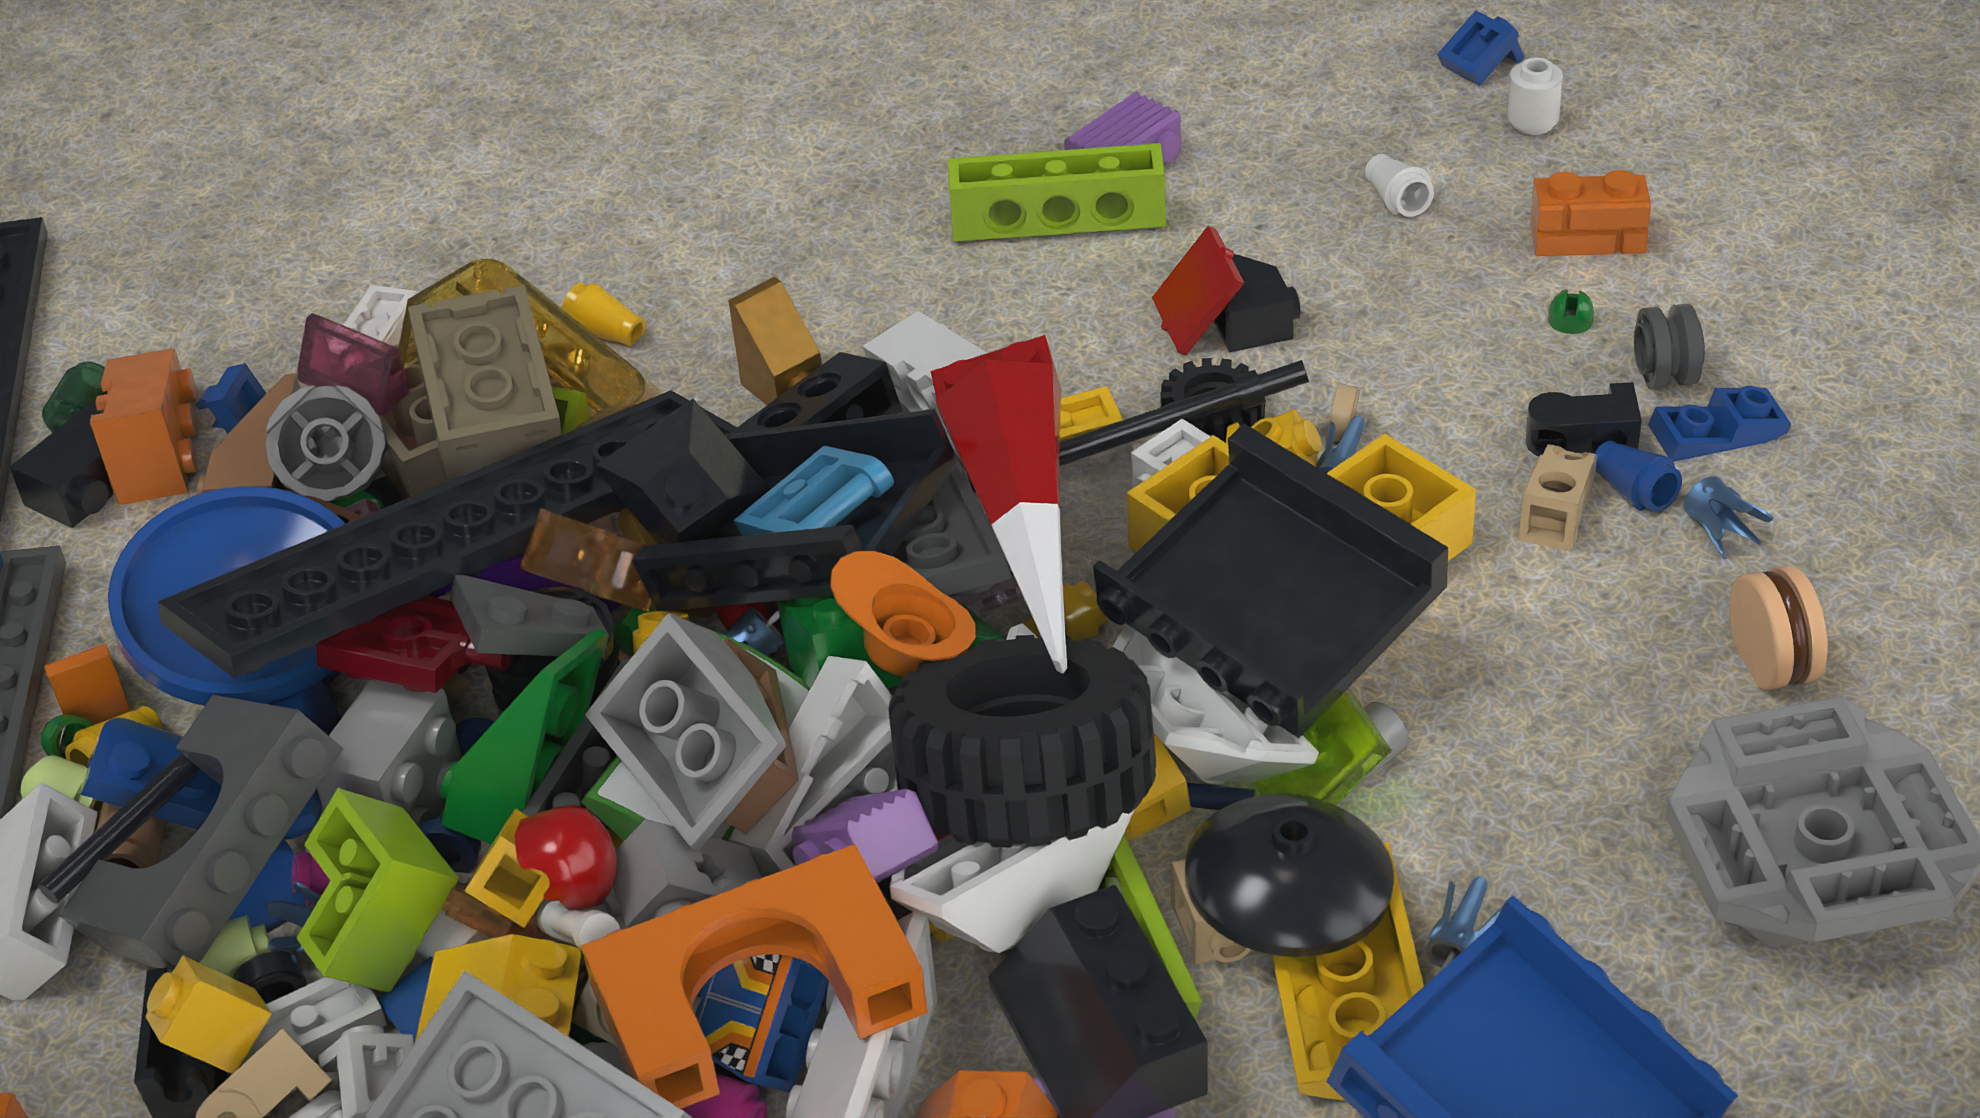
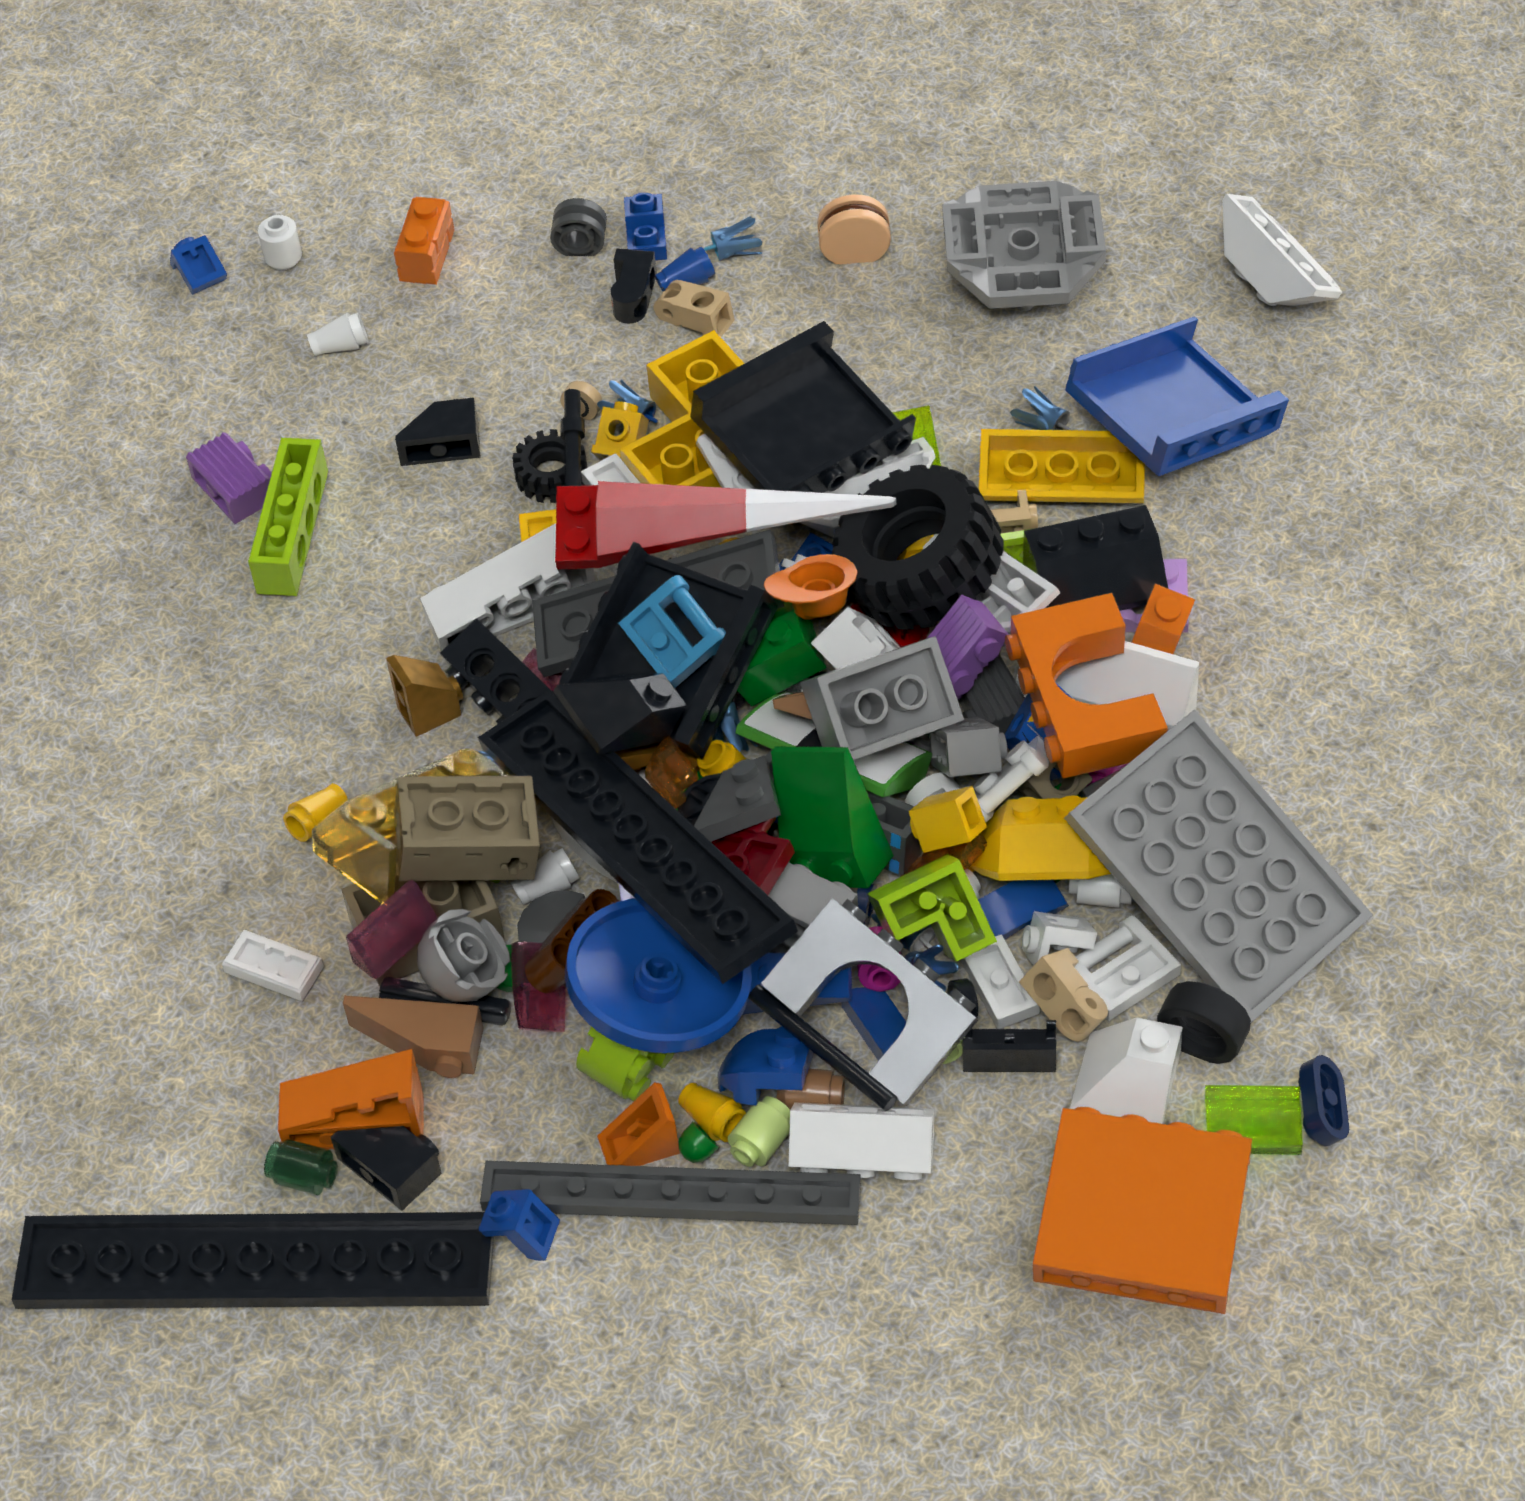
camera: 80 degrees left, 10 degrees up
(206, 1014) = (1017, 1002): yellow brick -> none
(232, 396) = (343, 1050): blue tile -> none
(572, 852) = (965, 771): red hair -> none
(1197, 290) = (437, 450): red piece -> none
(1289, 875) = (1011, 467): black dish -> none
(1571, 323) = (509, 275): green hinge -> none

